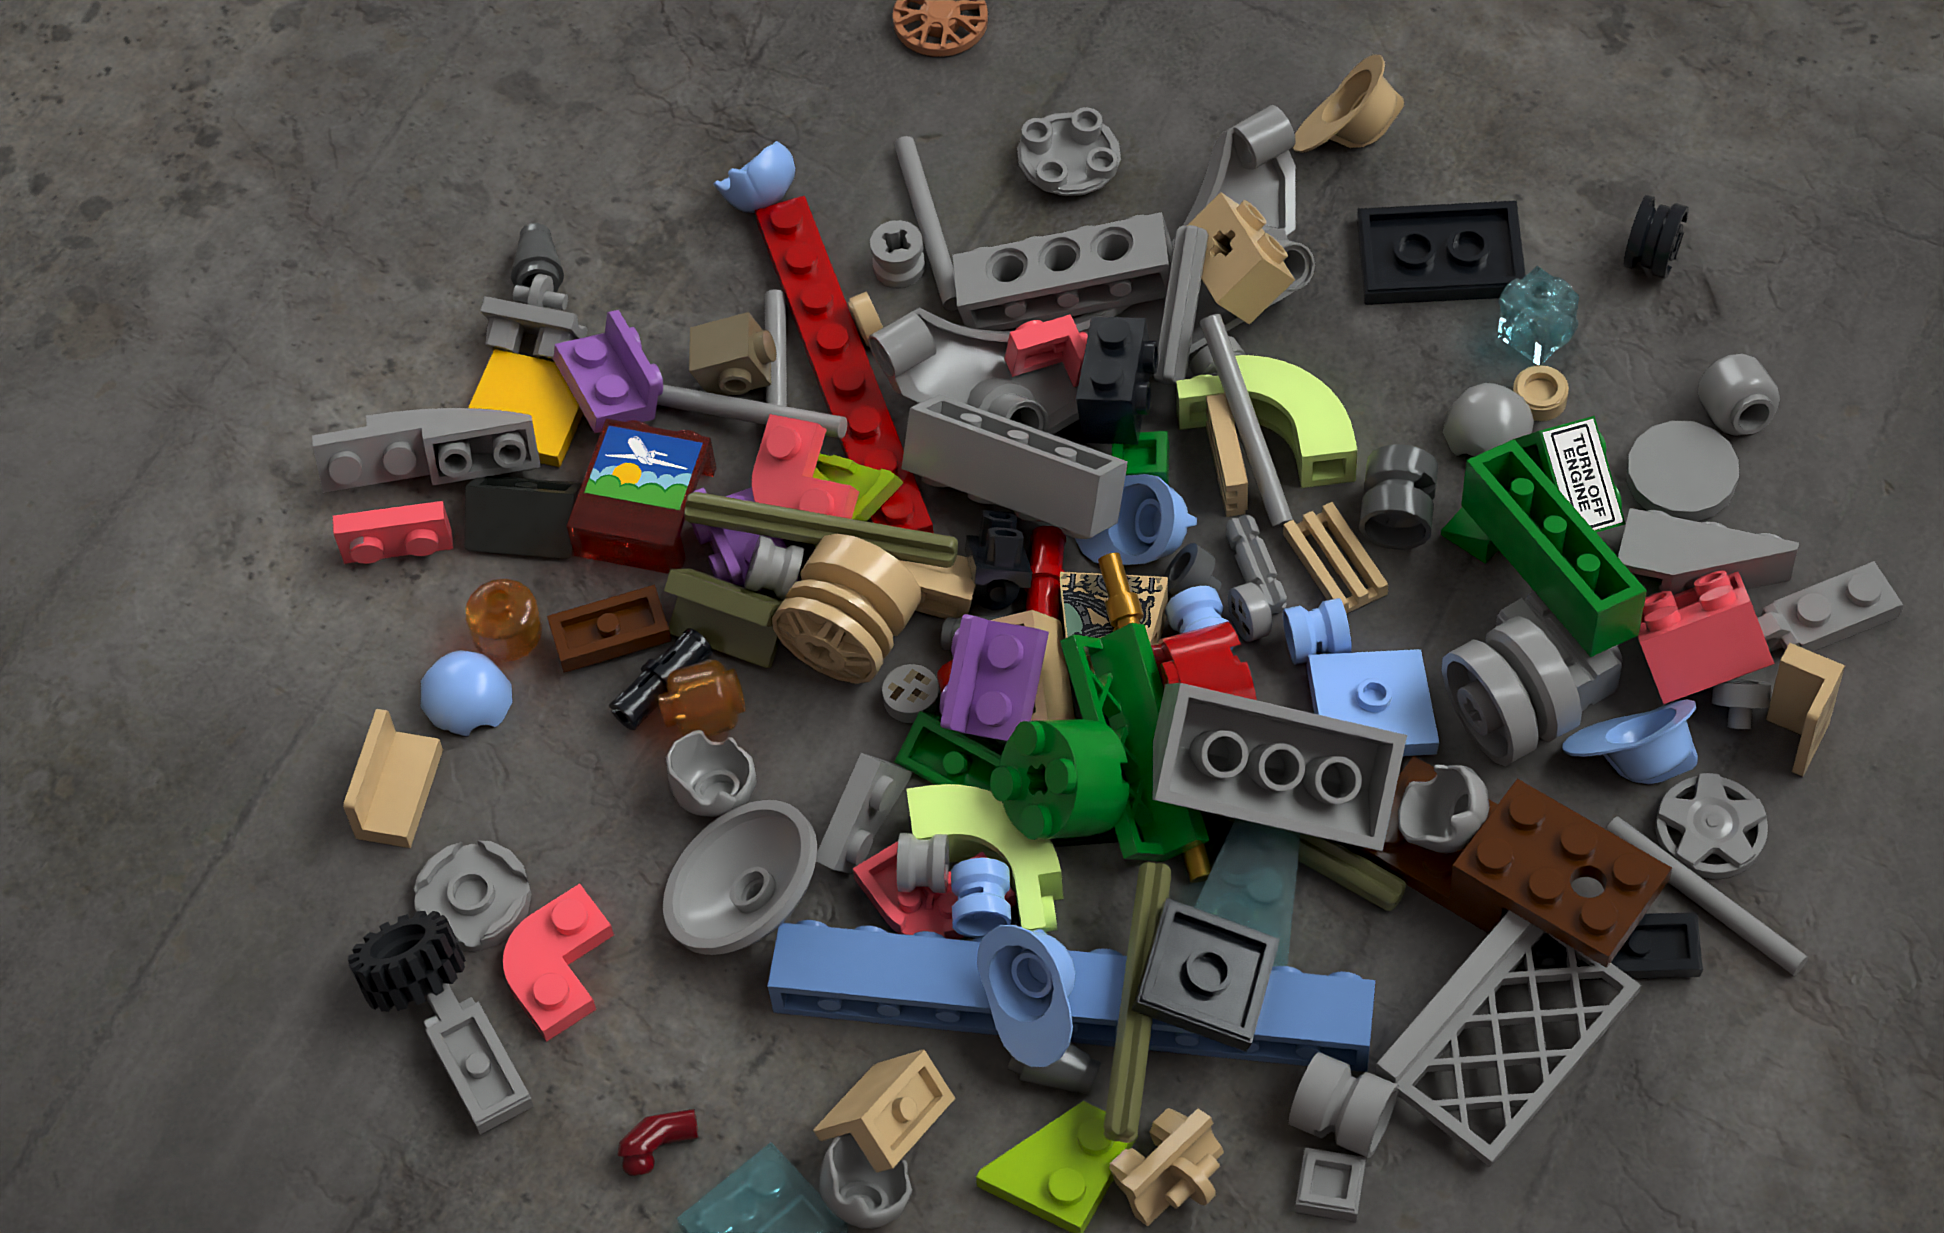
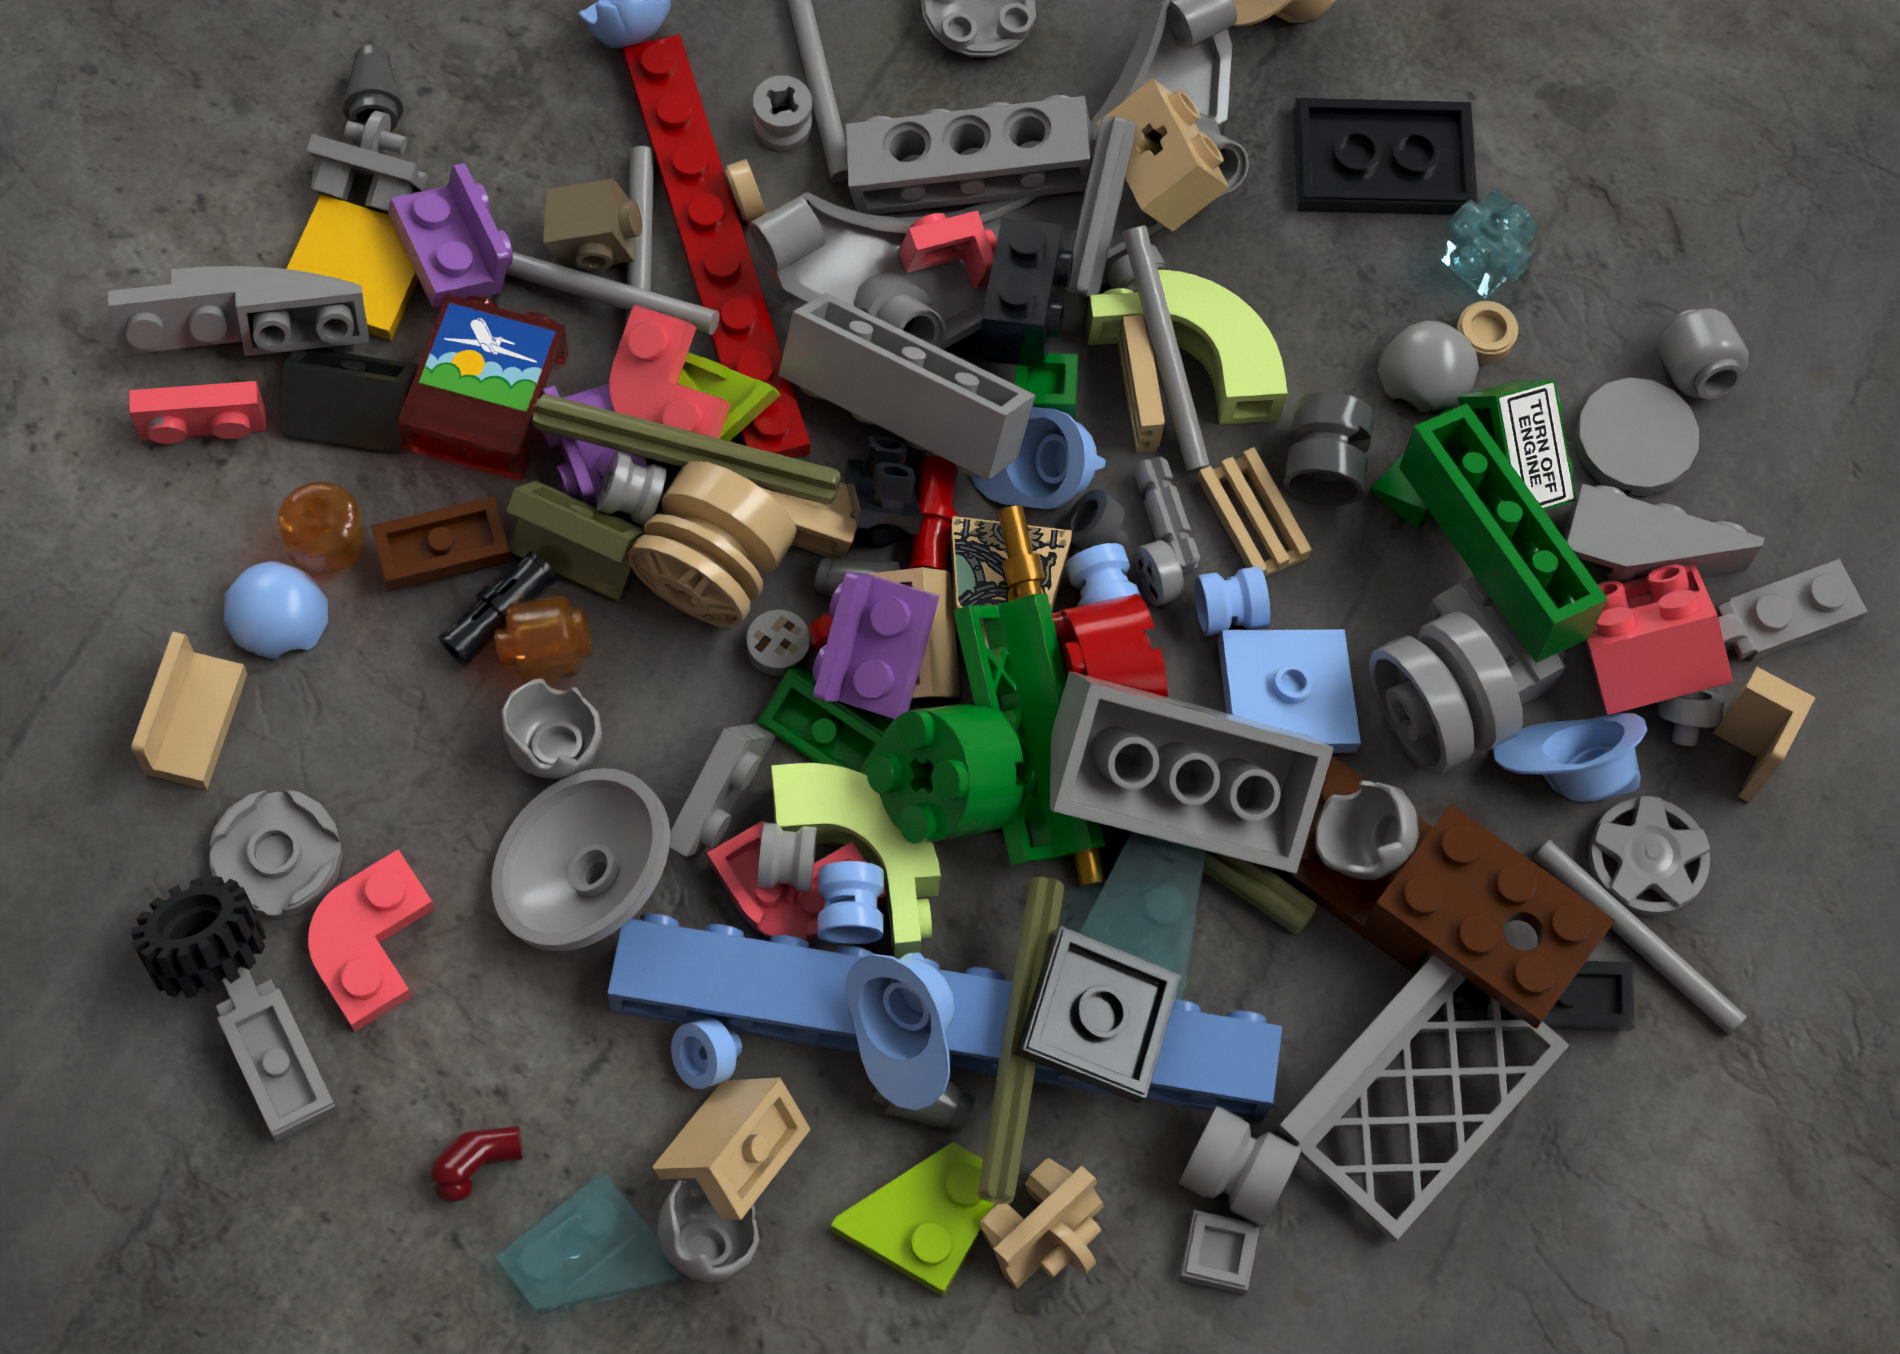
camera: 10 degrees left, 10 degrees up
(857, 1036) = (705, 1052): none -> light blue tile
(1655, 236) = (1624, 159): black wheel -> none

